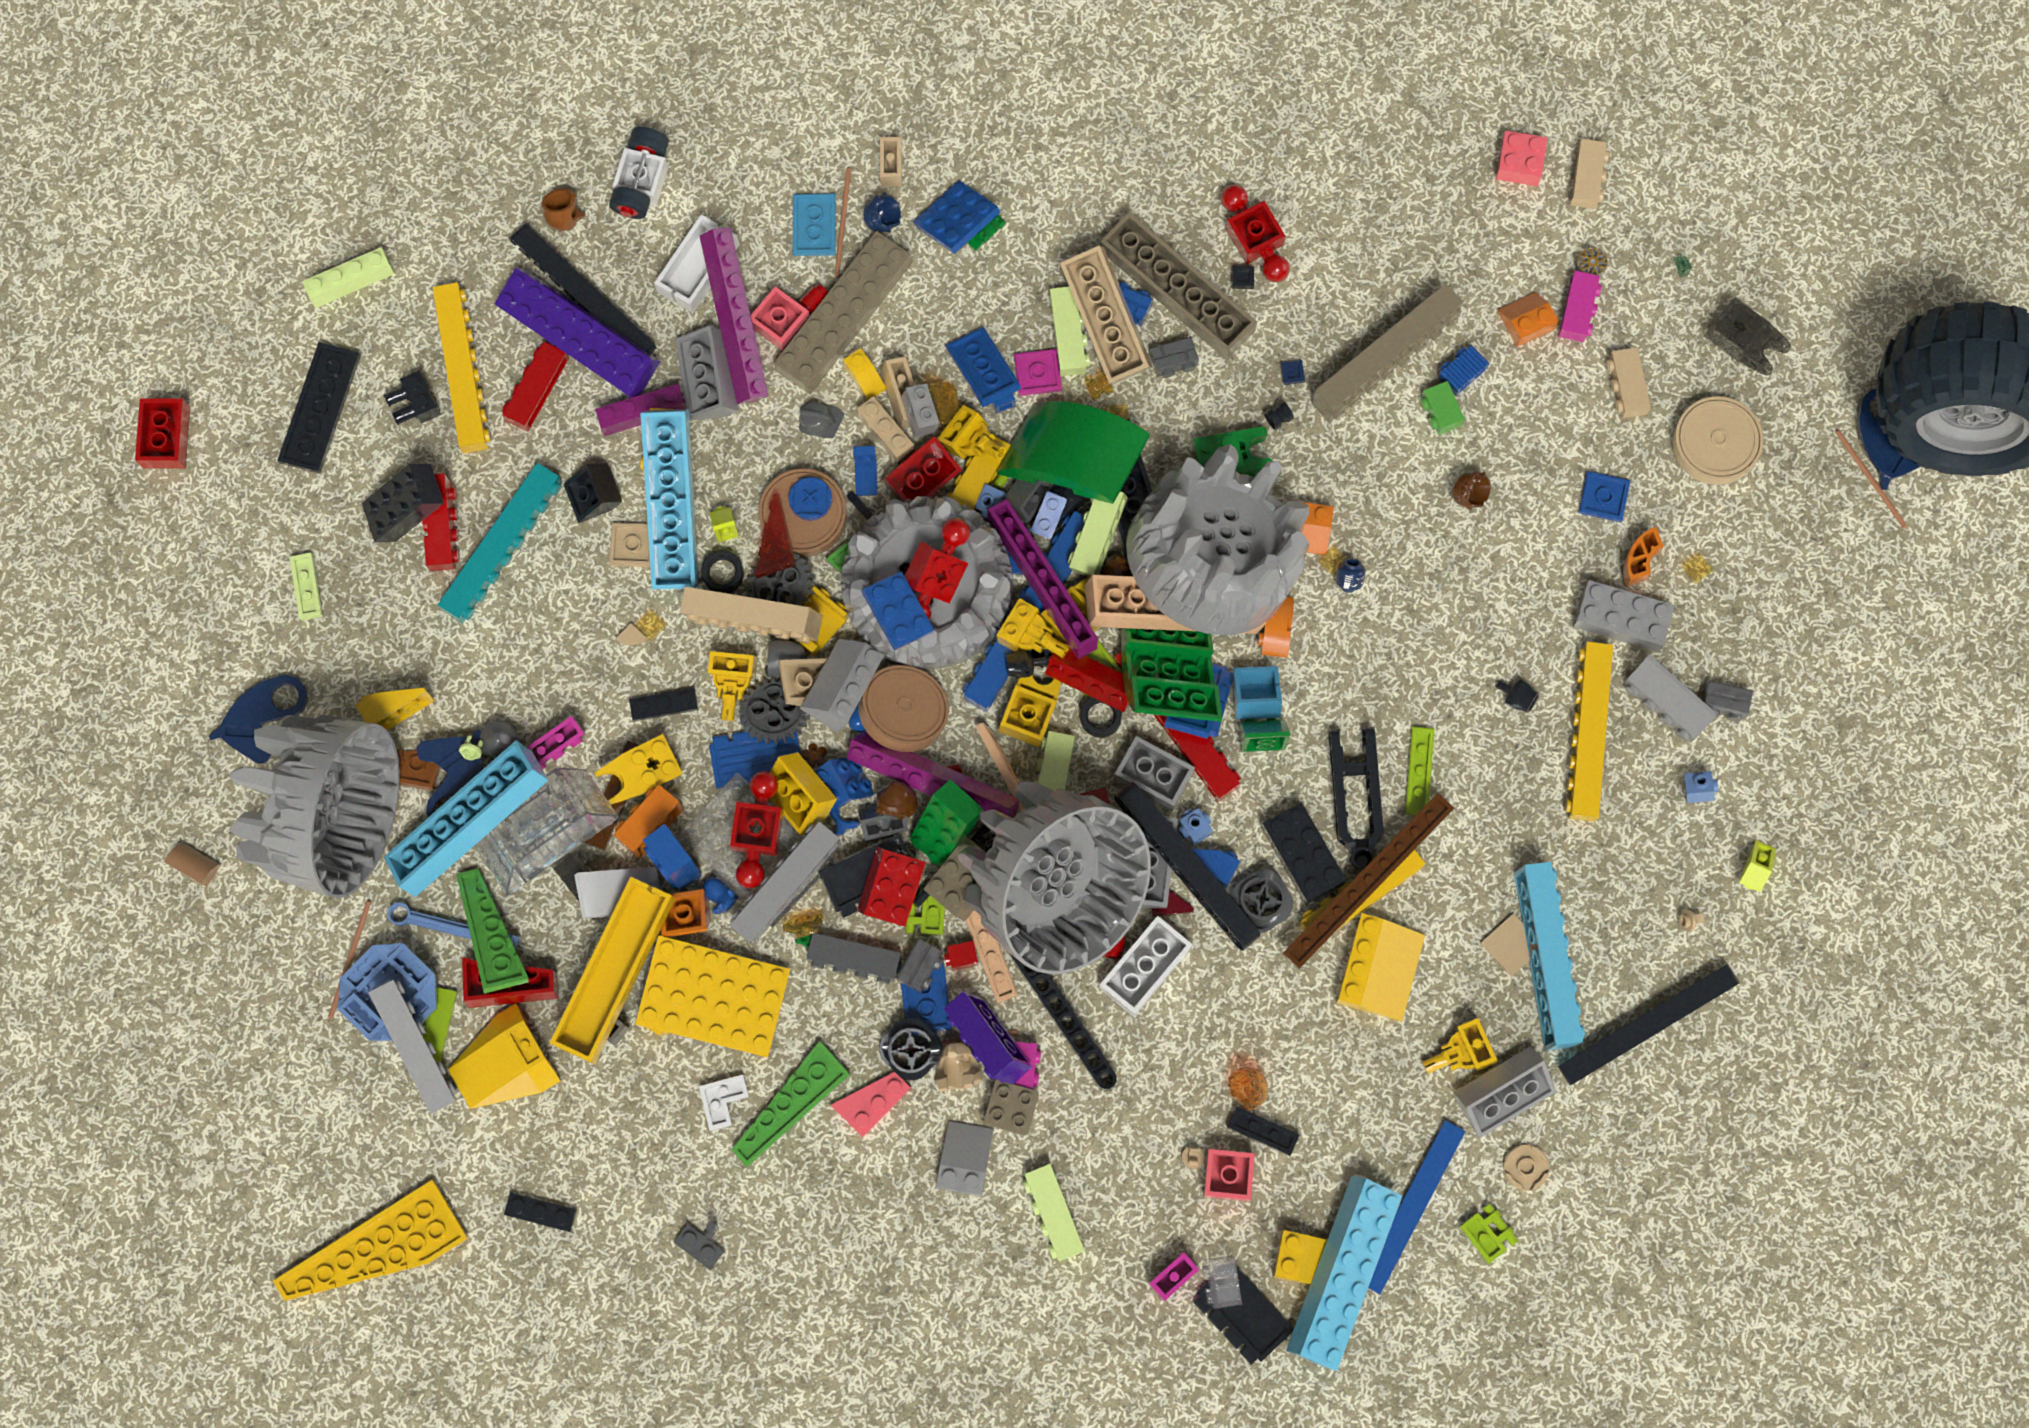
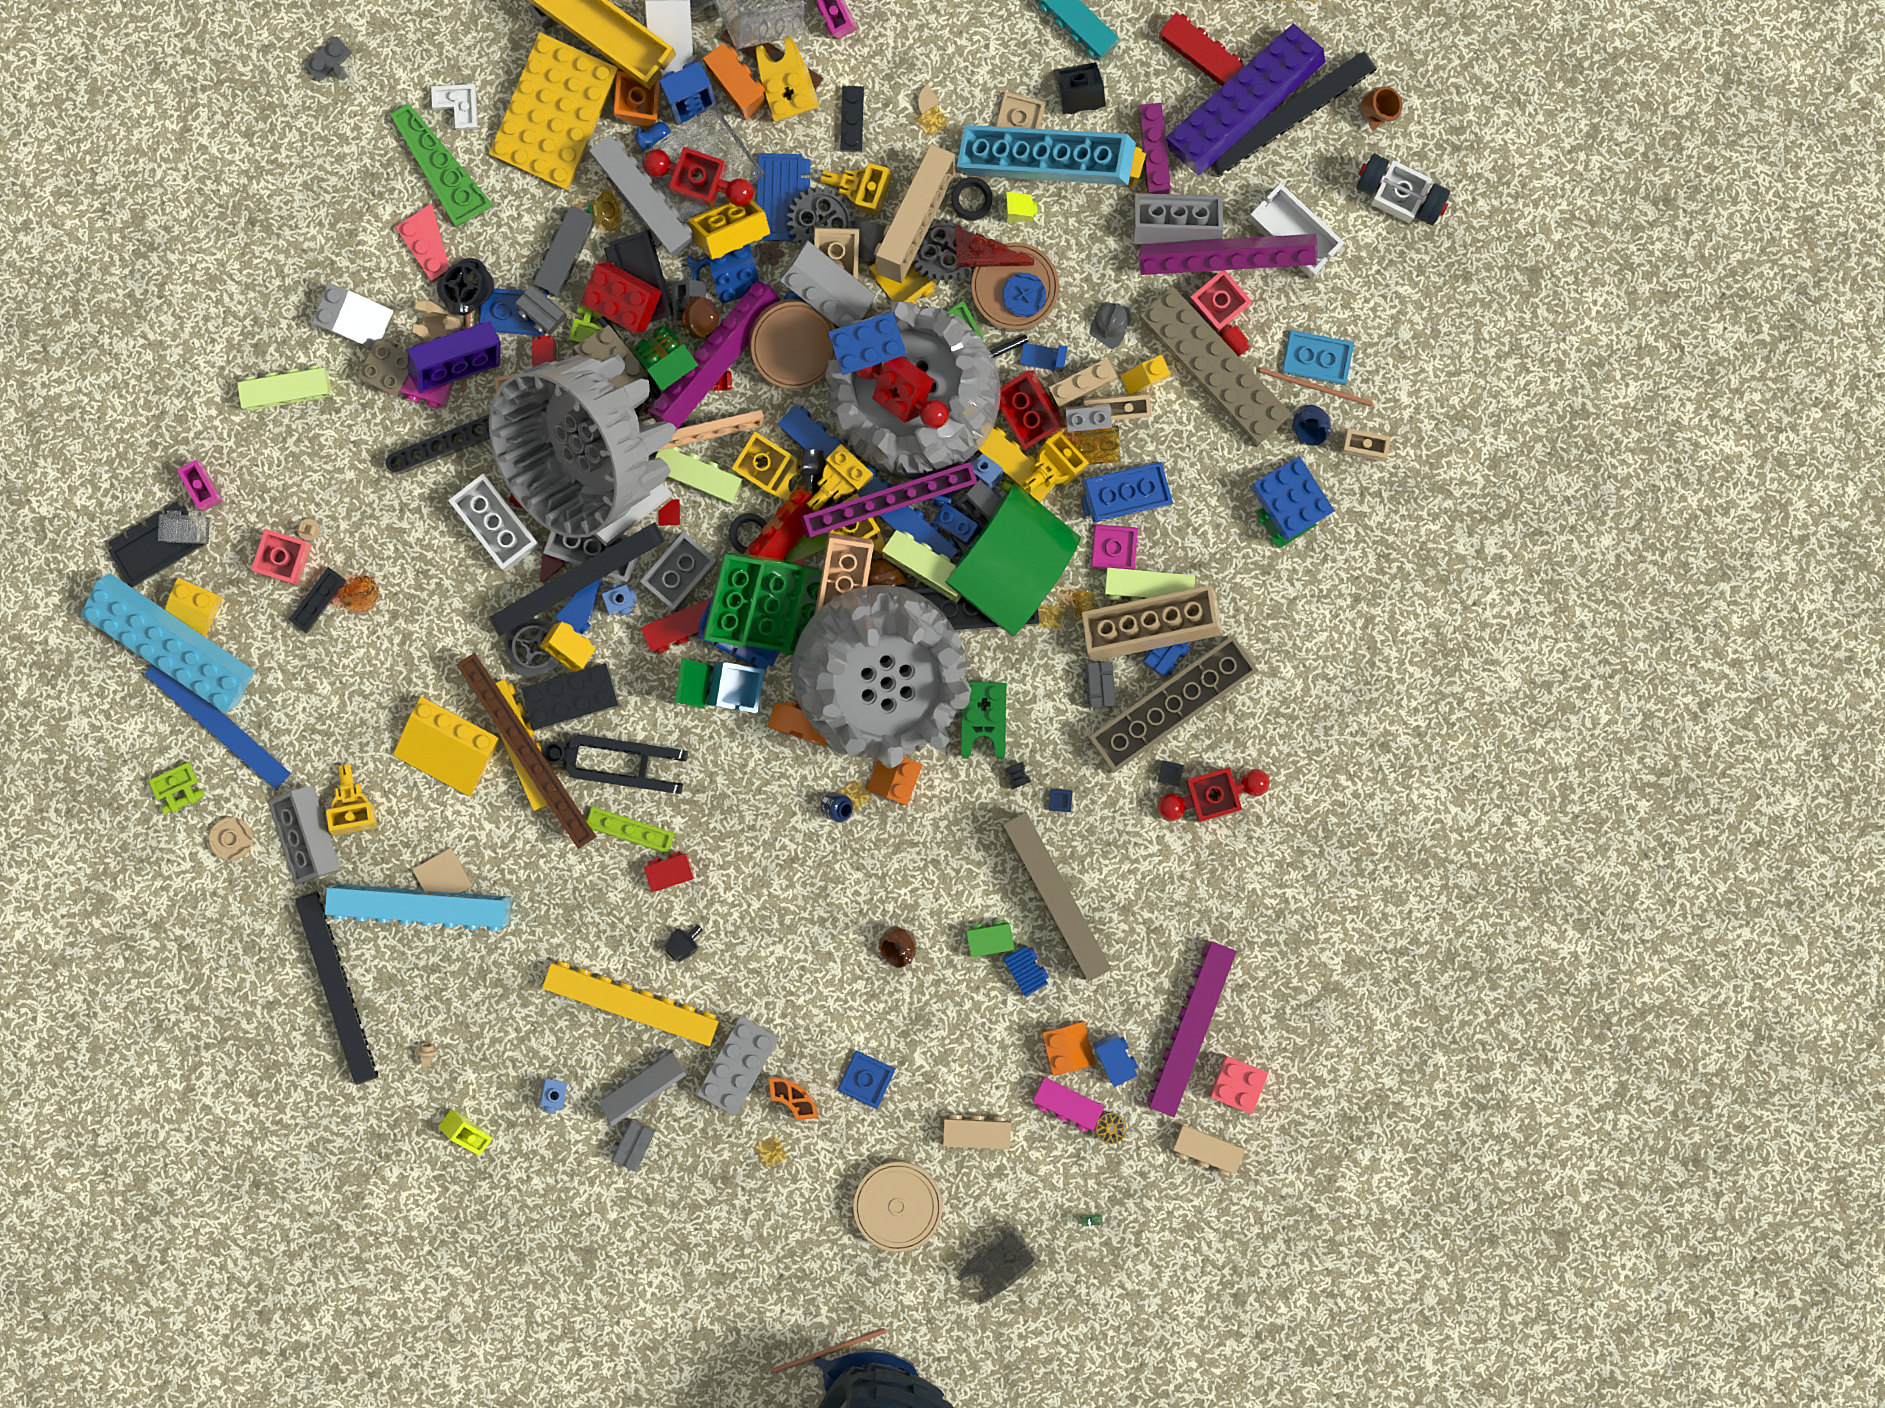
camera: 95 degrees right, 10 degrees up
(1255, 862) = (568, 646): none -> yellow brick
(1452, 722) = (669, 872): none -> red brick
(1480, 210) = (1192, 1028): none -> magenta brick
(1526, 271) = (1115, 1059): none -> blue brick

